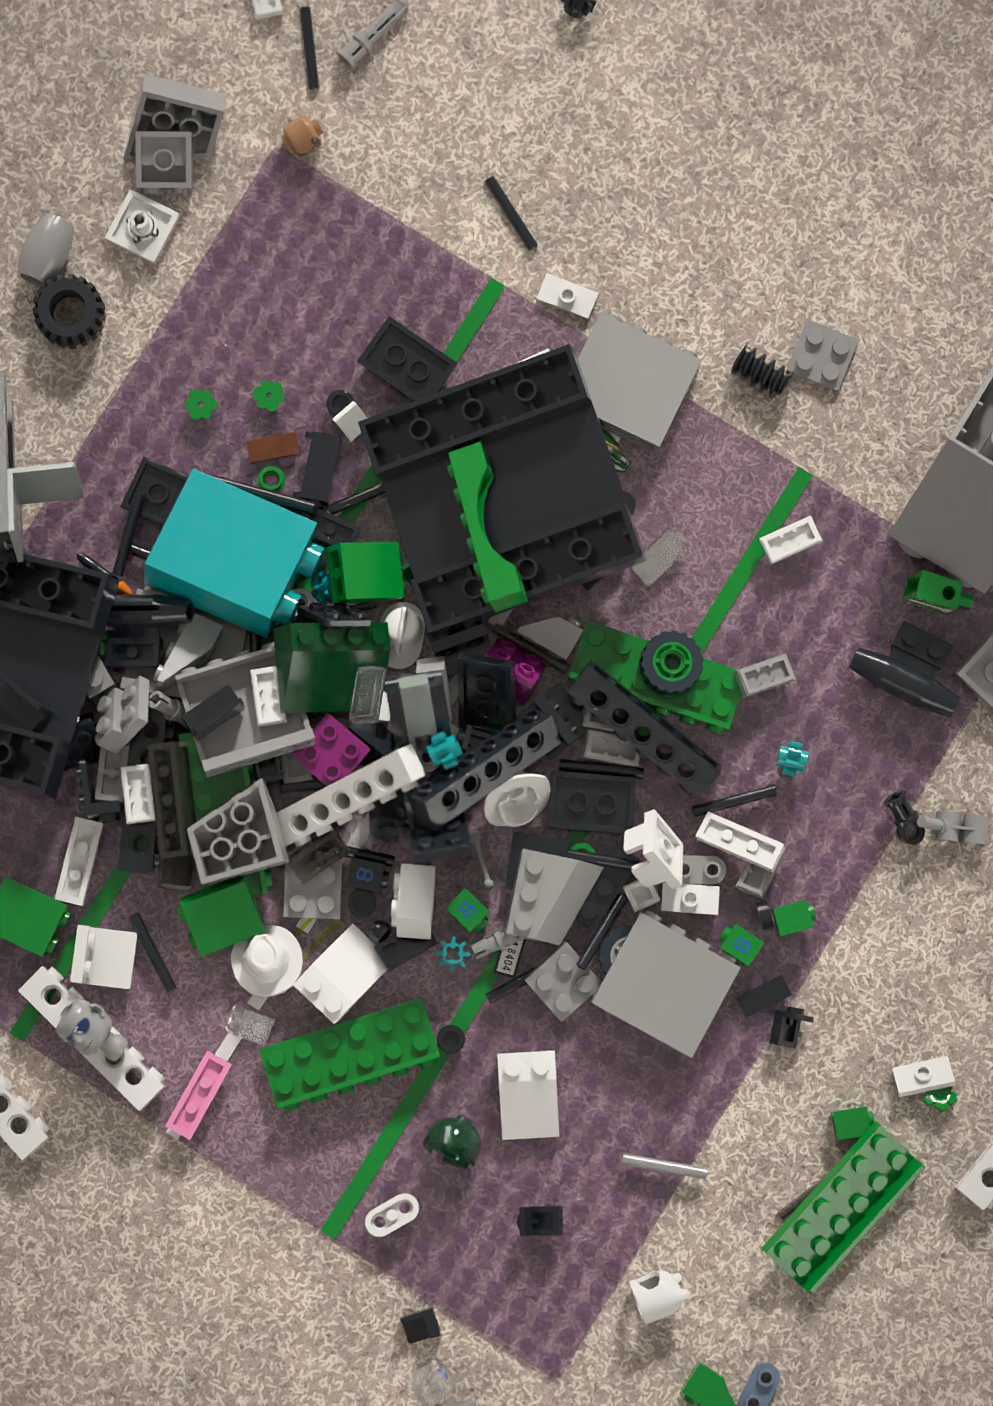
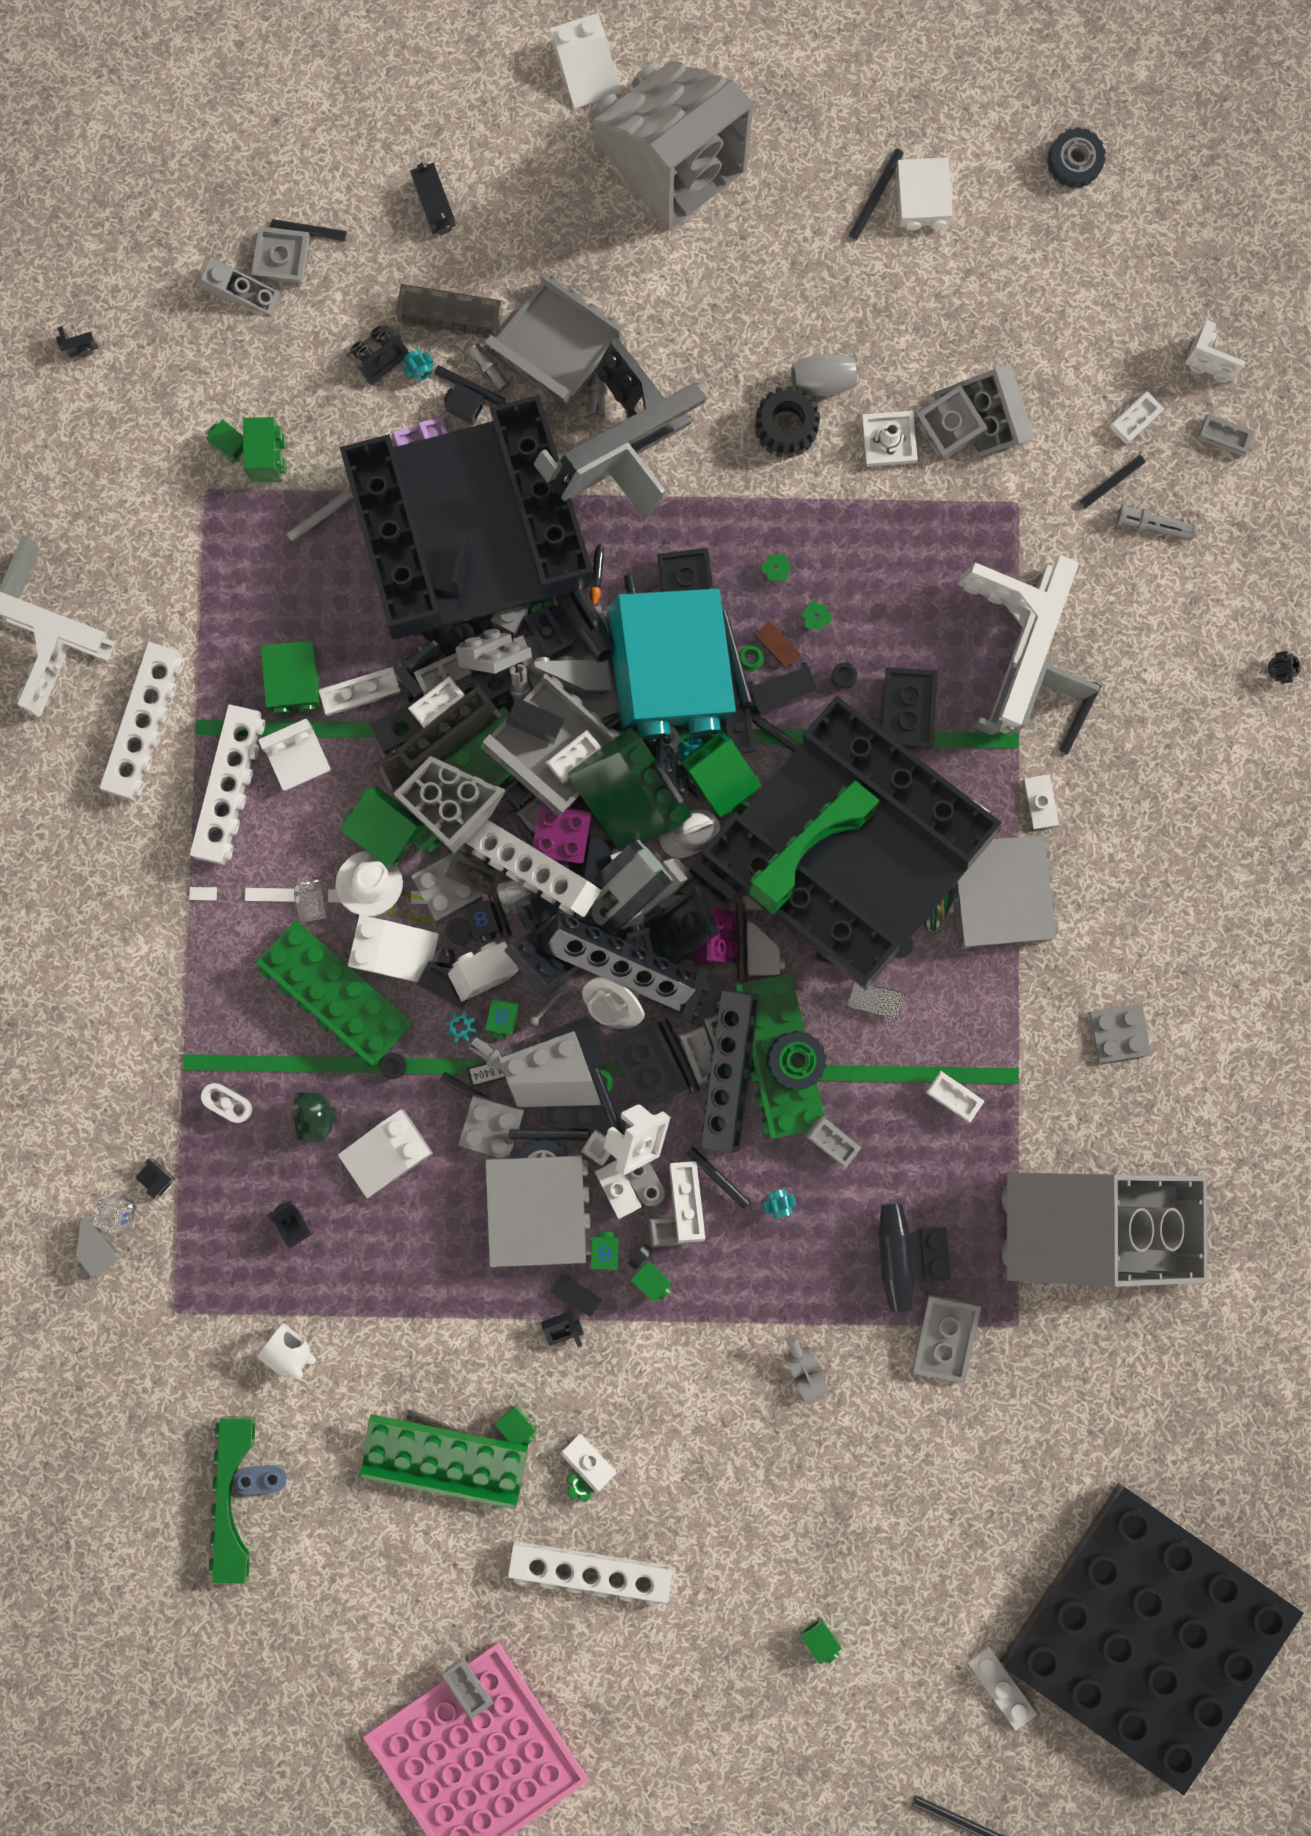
camera: 55 degrees right, 0 degrees up
(88, 1029) = (227, 775): light grey piece -> none
(128, 534) = (639, 573): black piece -> none
(152, 952) = (323, 791): black piece -> none
(198, 1095) = (231, 894): bright pink plate -> none
(302, 136) = (1038, 517): medium nougat head -> none
(348, 420) = (835, 687): white tile -> none
(367, 695) = (619, 836): clear tile -> none
(396, 192) = (1038, 615): none -> white piece
(444, 750) = (611, 919): teal gear -> none
(664, 1166) = (392, 1296): light grey piece -> none
(761, 372) = (1075, 992): black piece -> none
(904, 817) = (787, 1322): black connector -> none
(926, 591) = (982, 1231): green torso -> none

